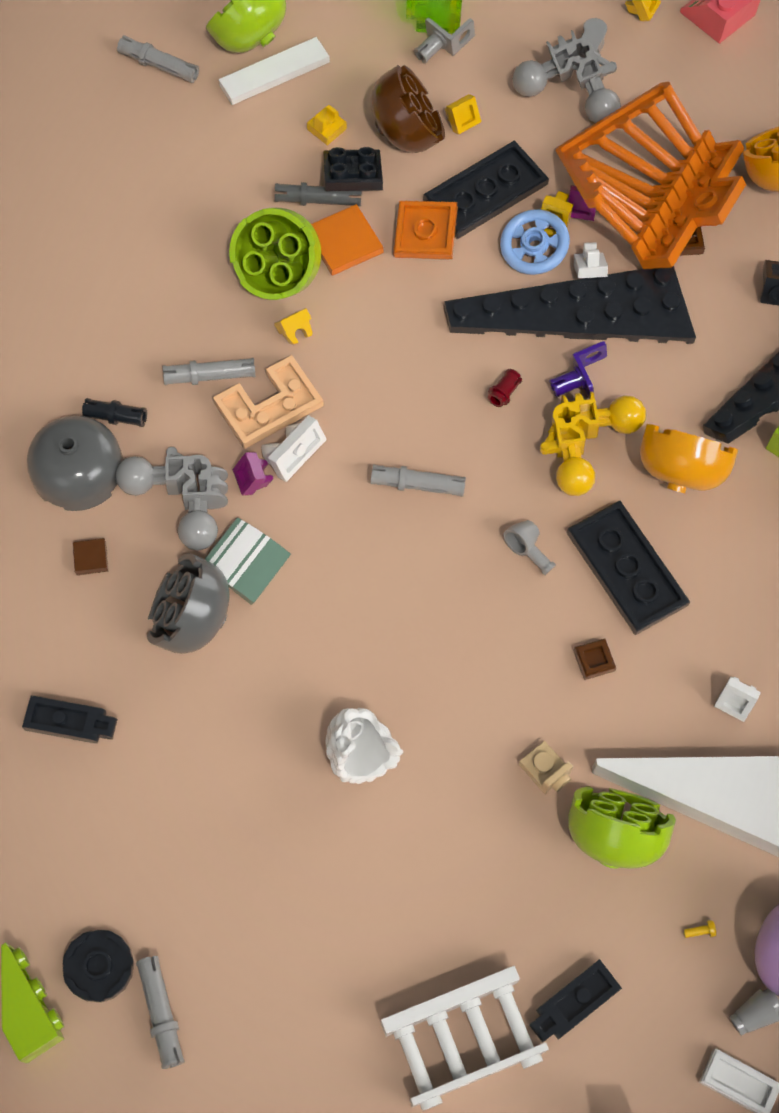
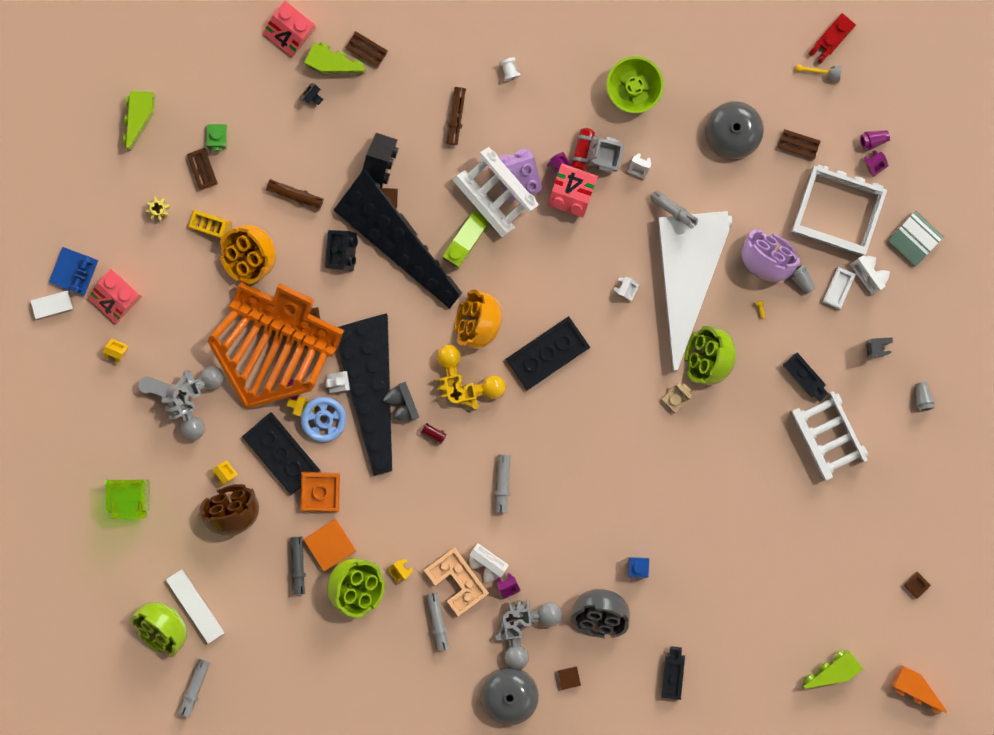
camera: 90 degrees left, 20 degrees up
(98, 966) = (808, 636): black tile -> none
(114, 412) = (472, 677): black pin -> none
(161, 1017) = (830, 599): light grey pin -> none
(247, 559) = (564, 583): sand green slope -> none
(258, 675) = (638, 567): none -> blue brick
(327, 125) = (238, 565): yellow tile -> none
(353, 169) = (278, 544): black tile -> none
(360, 746) = (677, 504): white hair -> none
(439, 39) = (163, 495): light grey bracket -> none
(522, 540) = (536, 417): light grey bar -> none
(545, 355) = (399, 395): none -> dark grey tile
(579, 376) = (423, 388): dark purple bracket -> none
(594, 659) = (608, 371): reddish brown tile -> none

